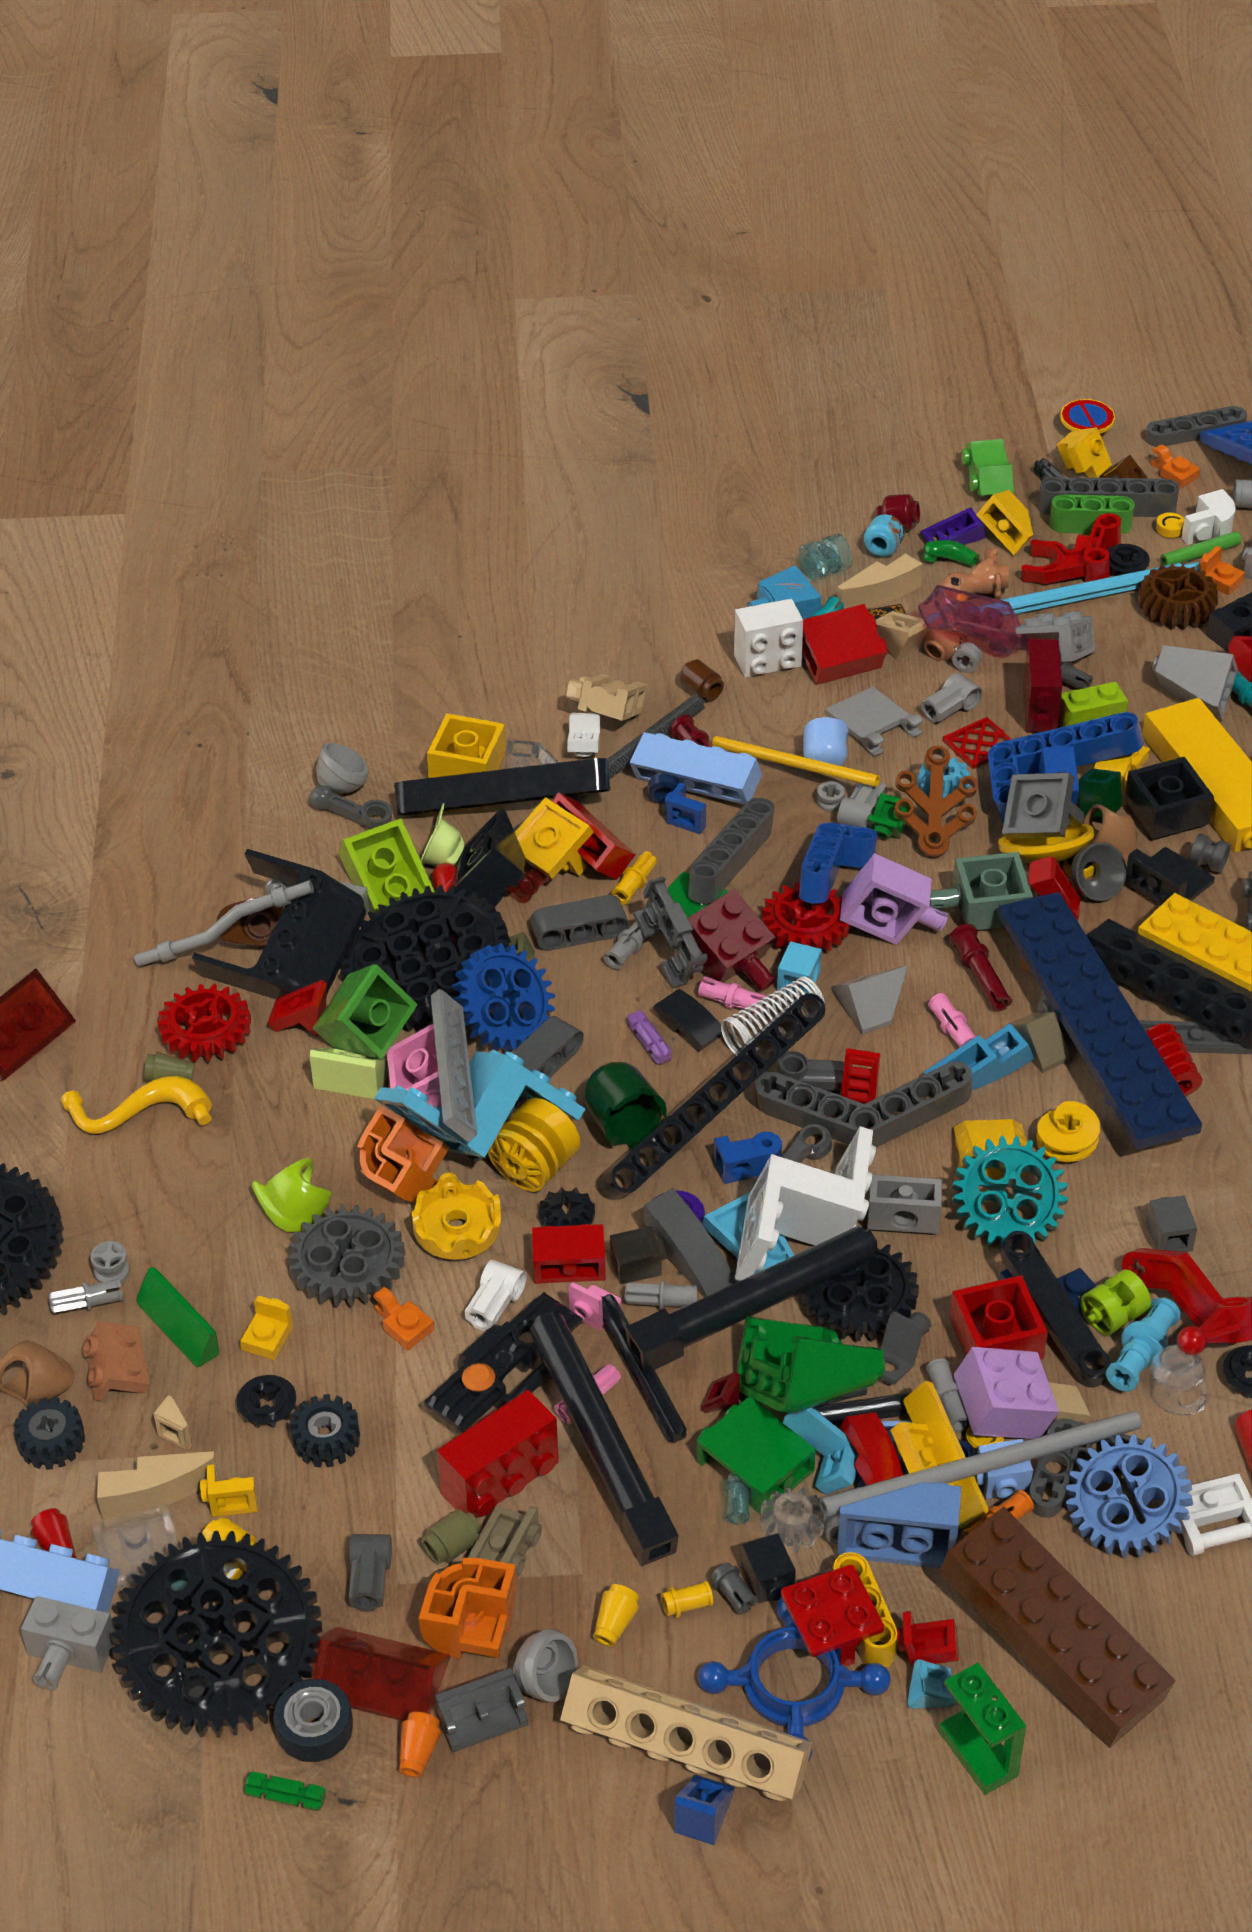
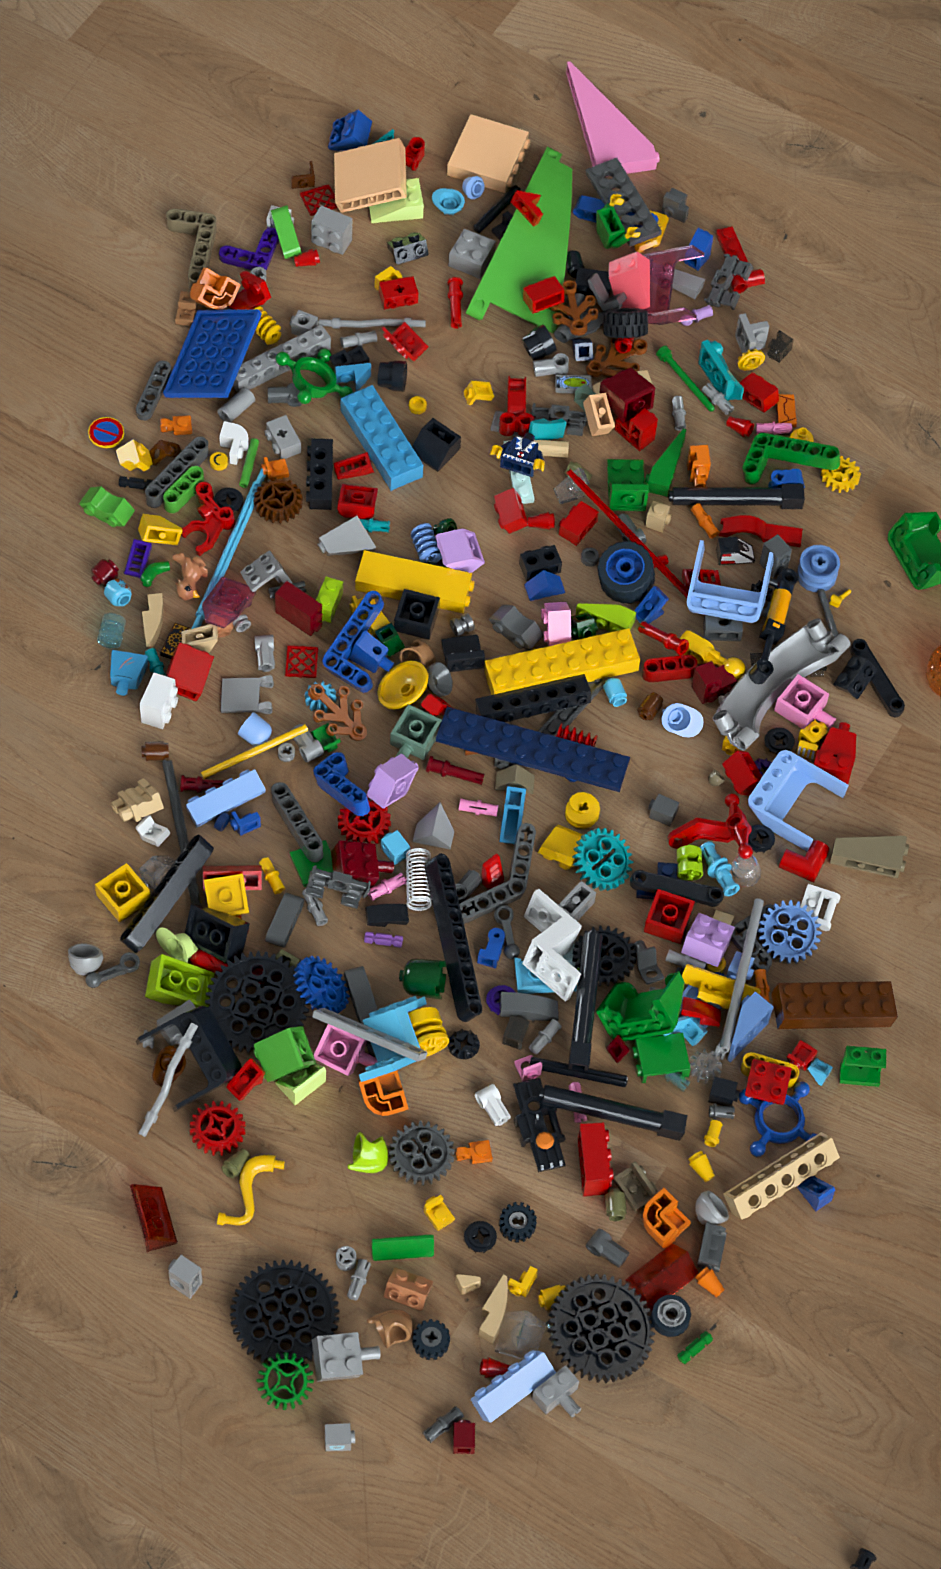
camera: 60 degrees left, 15 degrees up
(454, 1201) = (442, 1081): yellow plate -> none
(568, 1253) = (493, 1059): red brick -> none
(1040, 806) = (389, 673): dark grey bracket -> none

